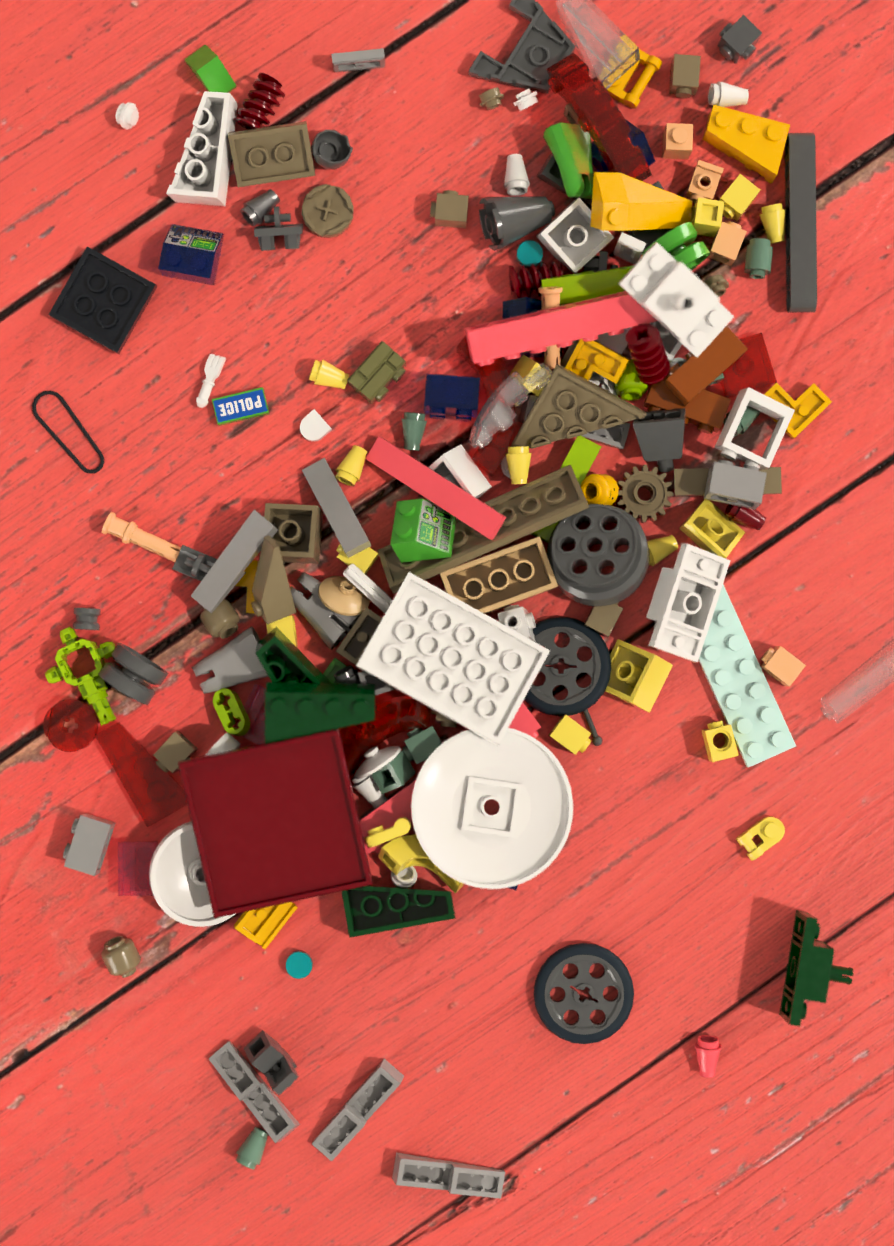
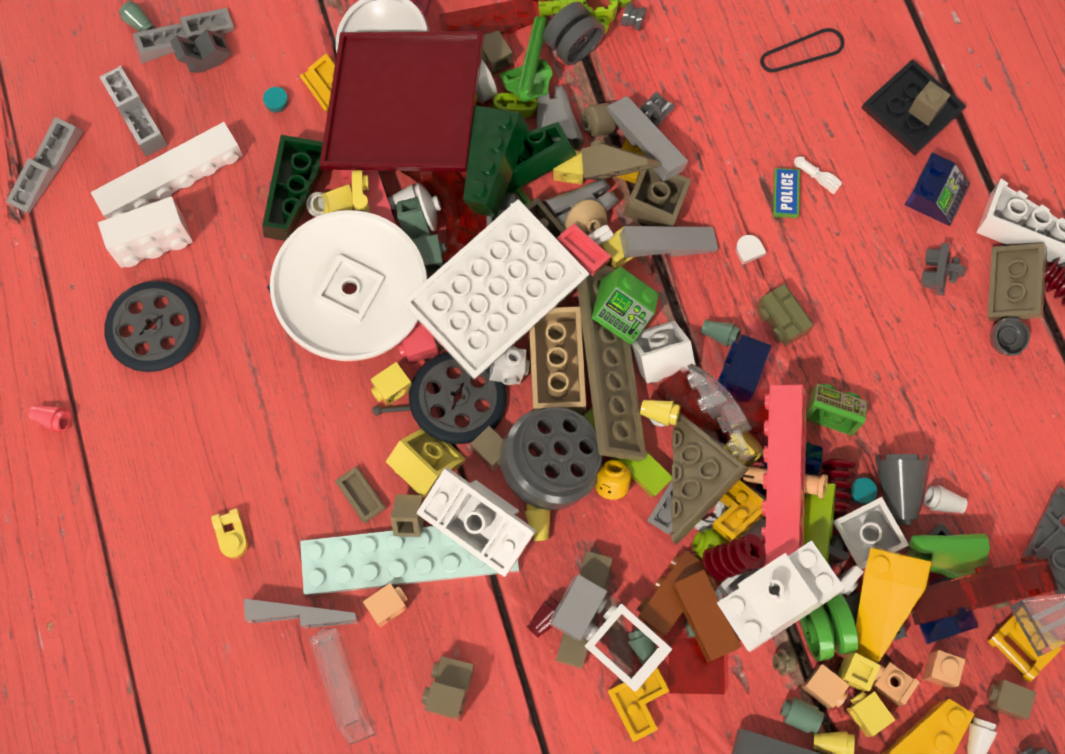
camera: 110 degrees right, 15 degrees down
(102, 283) = (929, 103): none -> dark tan brick
(130, 533) = (698, 71): light nougat pin -> none
(175, 708) = (531, 58): none -> bright green axle
(199, 705) = (540, 87): none -> bright green slope
(258, 207) = (969, 259): flat silver cone -> none
(327, 211) = (950, 320): dark tan tile -> none
(328, 375) = (795, 271): light yellow cone -> none
(351, 467) = (703, 268): light yellow cone -> none
(380, 587) = (584, 249): none -> coral tile
(420, 1042) = (168, 172): none -> white brick
(436, 488) = (659, 329): coral tile -> none
(450, 209) = (925, 428): dark tan brick -> none
(459, 298) = (836, 409): none -> bright green slope
(491, 98) = (1027, 501): dark tan plate -> none
(496, 1035) = (145, 232): none -> white brick
(525, 99) = (1019, 533): white plate -> none
(656, 487) = (596, 510): dark tan gear -> none
(661, 436) = (648, 555): dark grey torso -> none
(685, 727) = (360, 494): none -> dark tan tile
(693, 674) = (404, 517): none -> dark tan brick
(712, 529) = (540, 579): light yellow slope -> none
(728, 750) = (324, 514): light yellow brick -> none
(808, 969) = (86, 532): dark green brick -> none
(815, 730) = (310, 617): none -> light grey slope
(844, 580) = (450, 688): none -> dark tan brick

